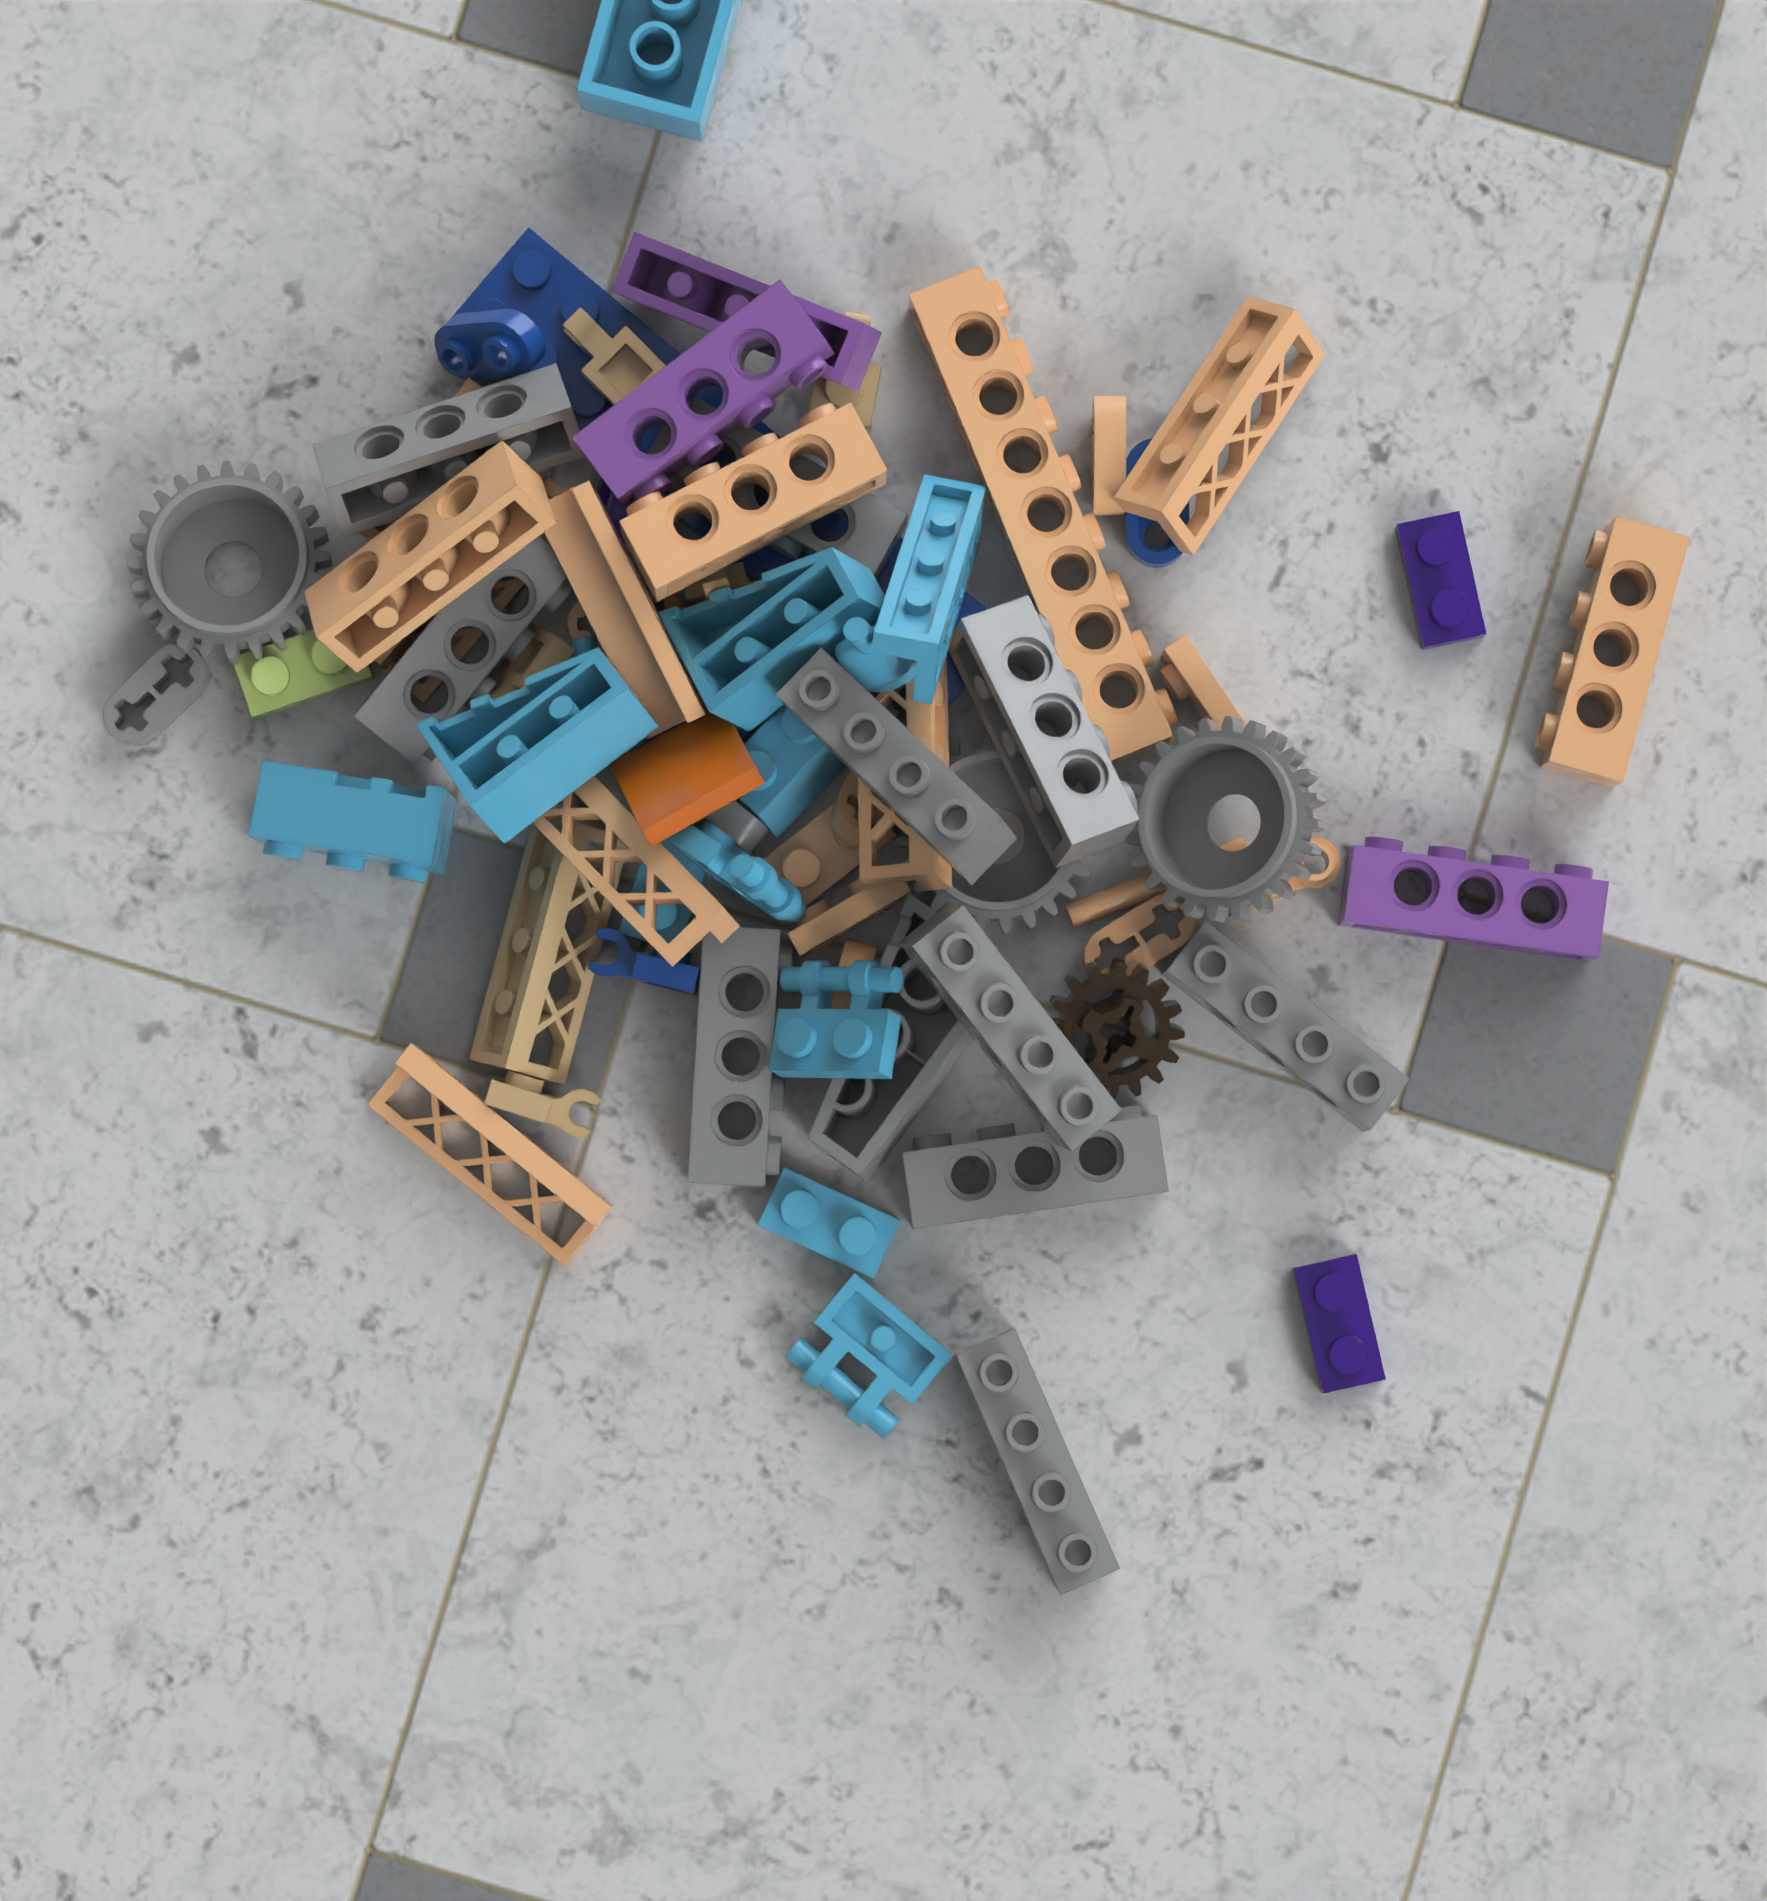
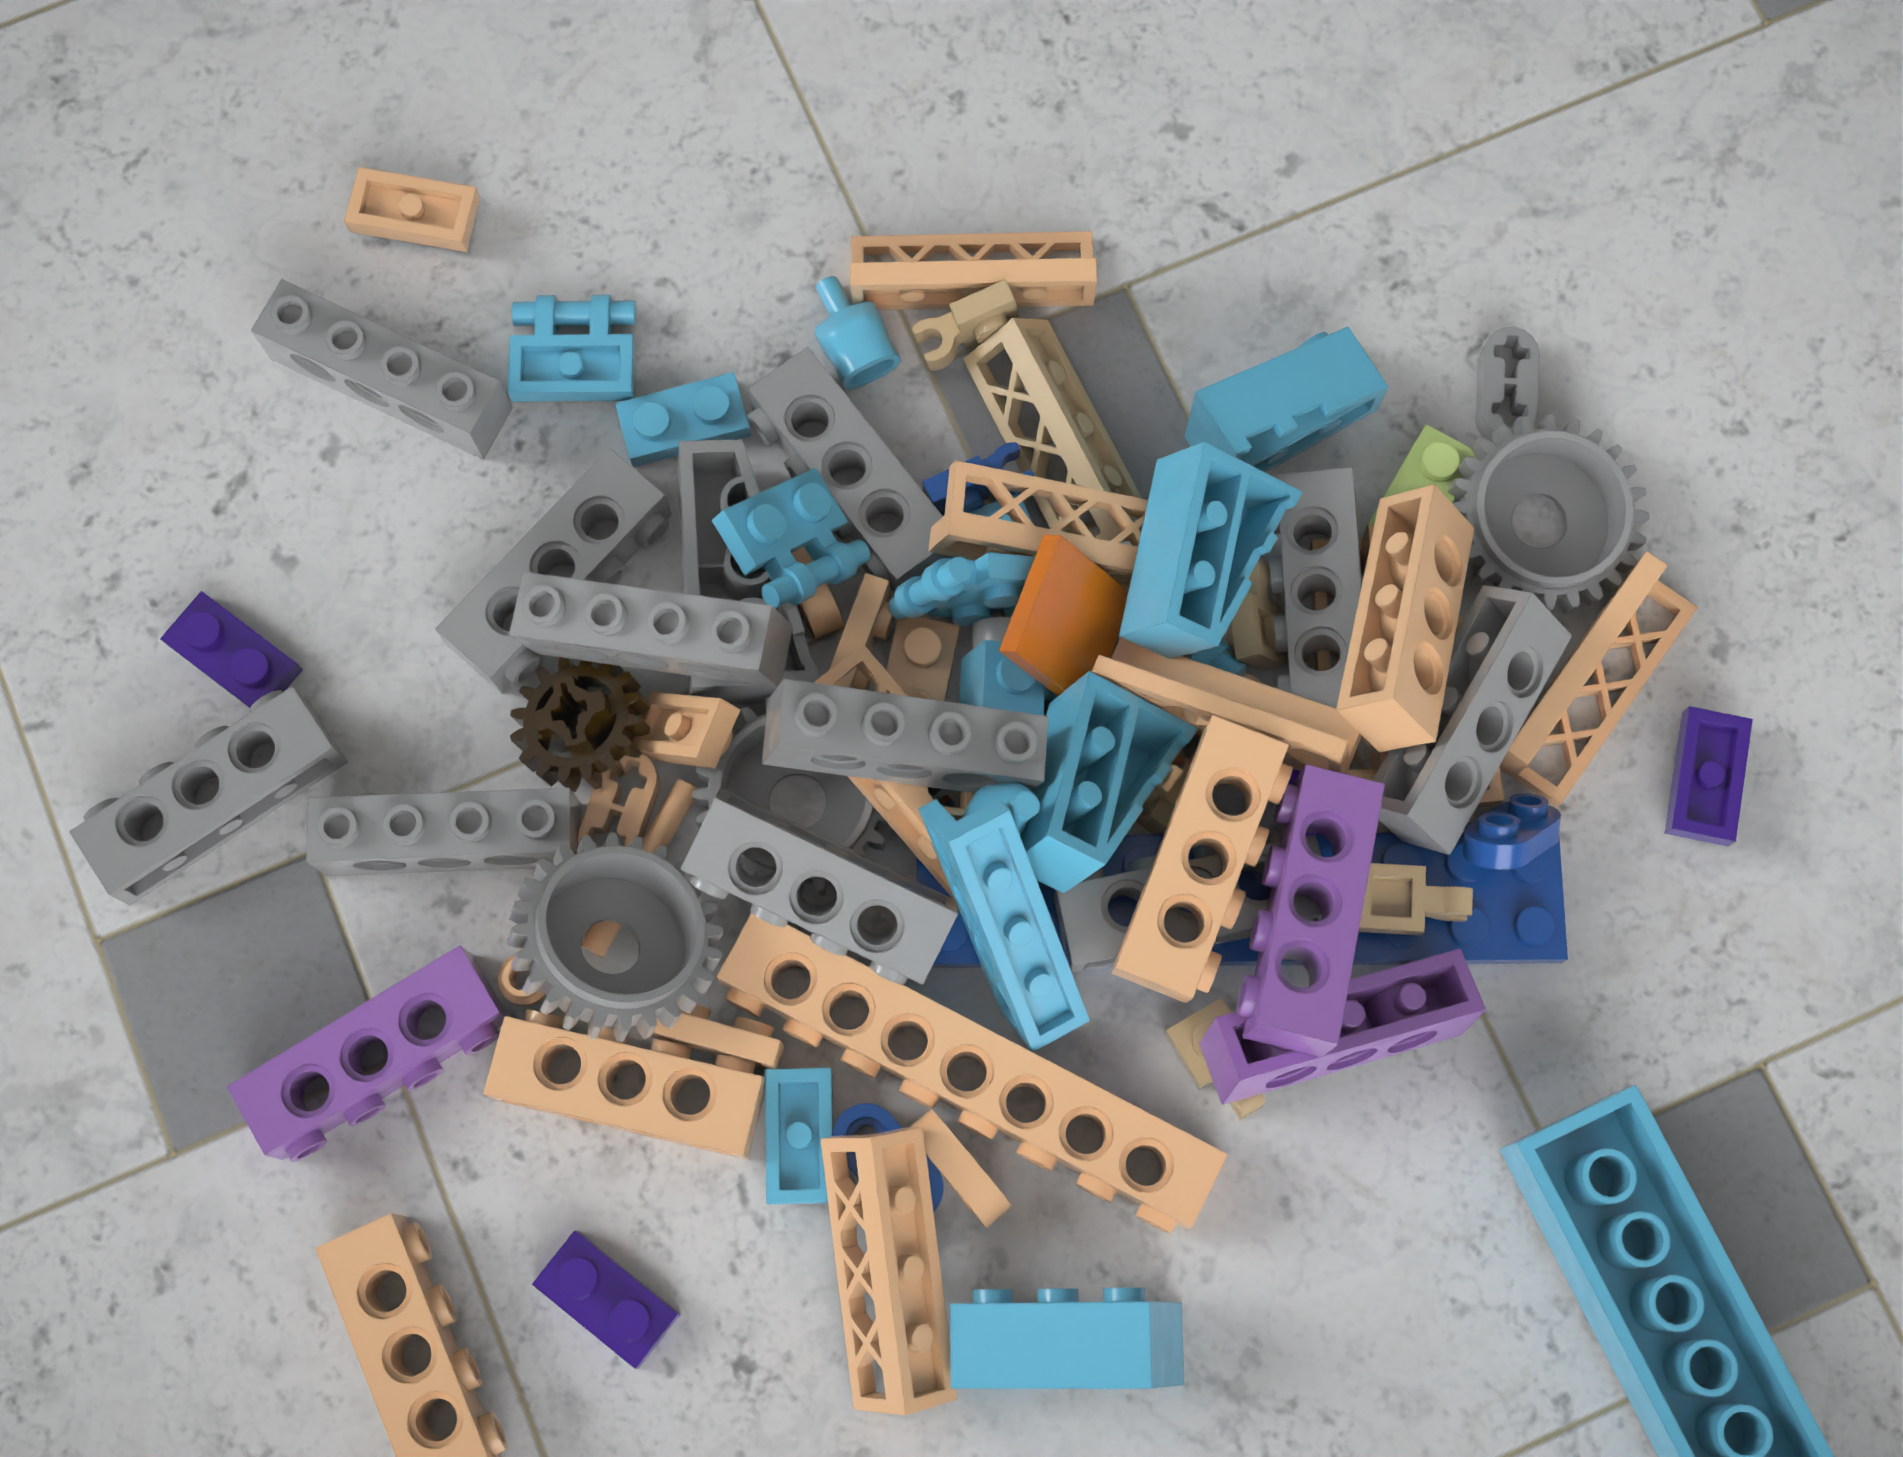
camera: 140 degrees right, 10 degrees down
(263, 440) = (1586, 661): none -> light nougat fence
(295, 267) = (1708, 776): none -> dark purple plate
(635, 1178) = (854, 337): none -> medium azure piece
(900, 1592) = (412, 209): none -> light nougat plate
(1040, 946) = (687, 729): none -> light nougat plate
(1137, 265) = (1066, 1341): none -> medium azure wedge
(1204, 581) = (796, 1119): none -> medium azure plate
(1260, 629) = (523, 1078): none -> light nougat brick
(1544, 1208) = (190, 831): none -> light grey brick

